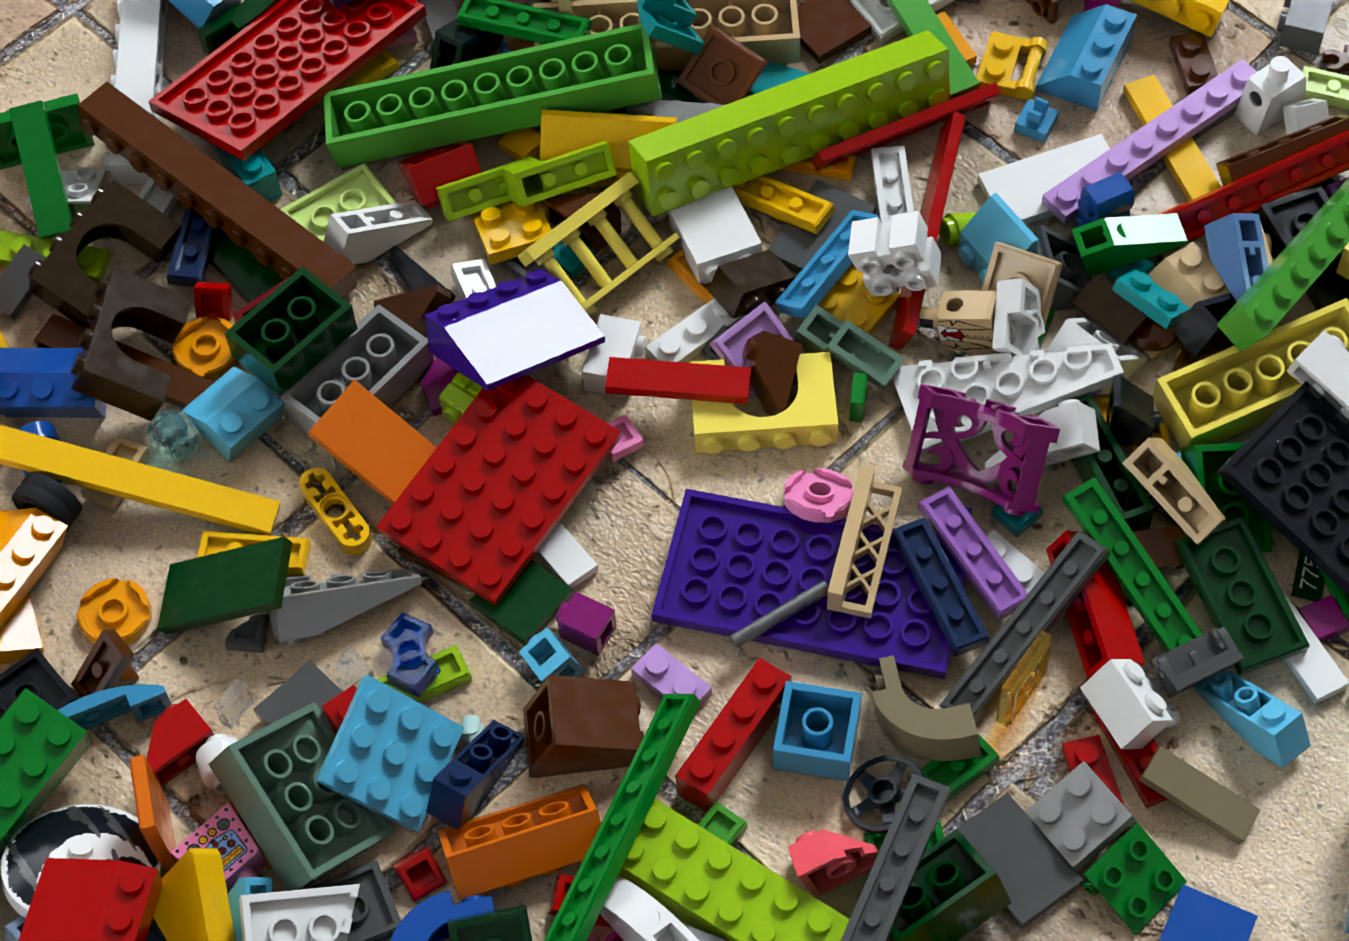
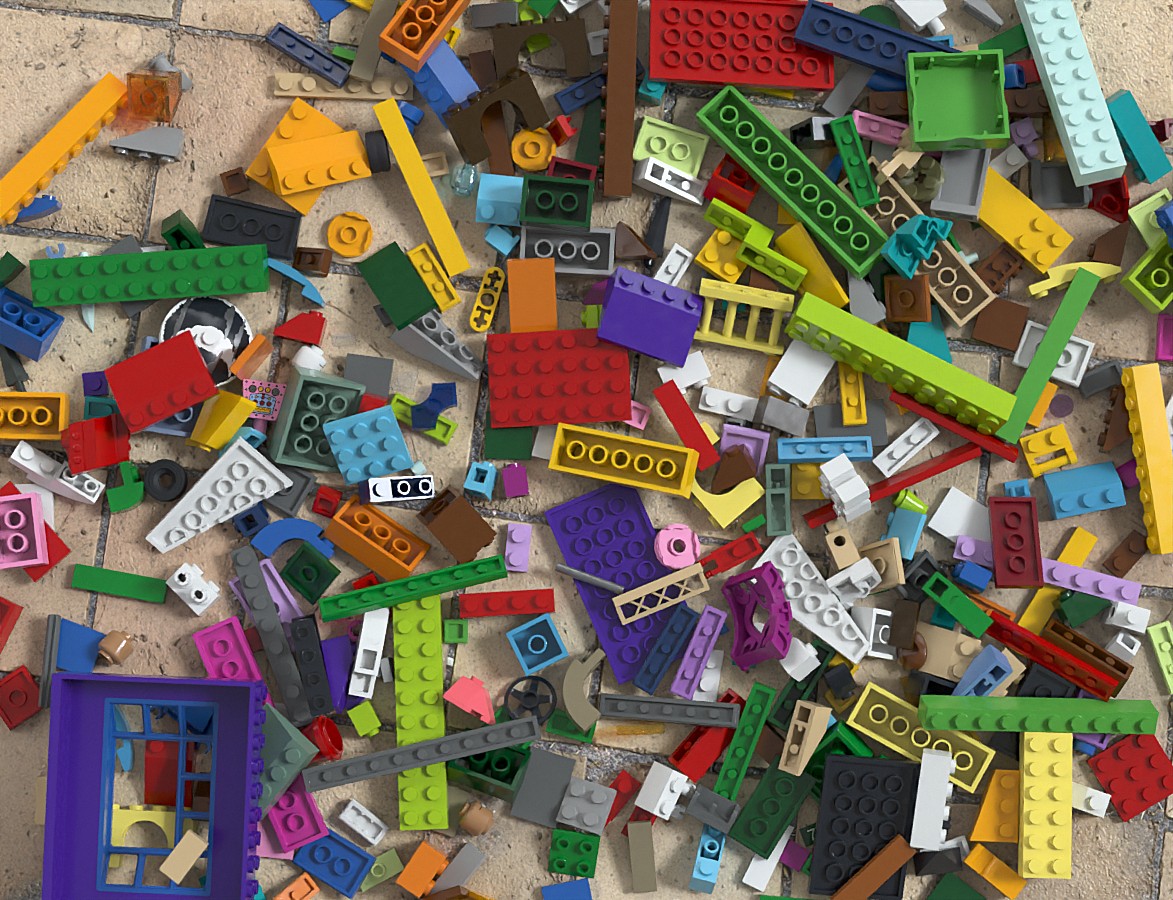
camera: 50 degrees right, 25 degrees up
(279, 445) = (501, 240): none -> medium azure brick
(664, 470) = (624, 460): none -> yellow brick
(878, 439) = (732, 554): none -> red hinge
(970, 24) = (1061, 406): none -> clear purple tile
(1098, 139) = (1015, 543): none -> dark red plate
(1150, 298) = (924, 643): teal plate -> none
(1222, 132) = (1078, 607): none -> dark green slope

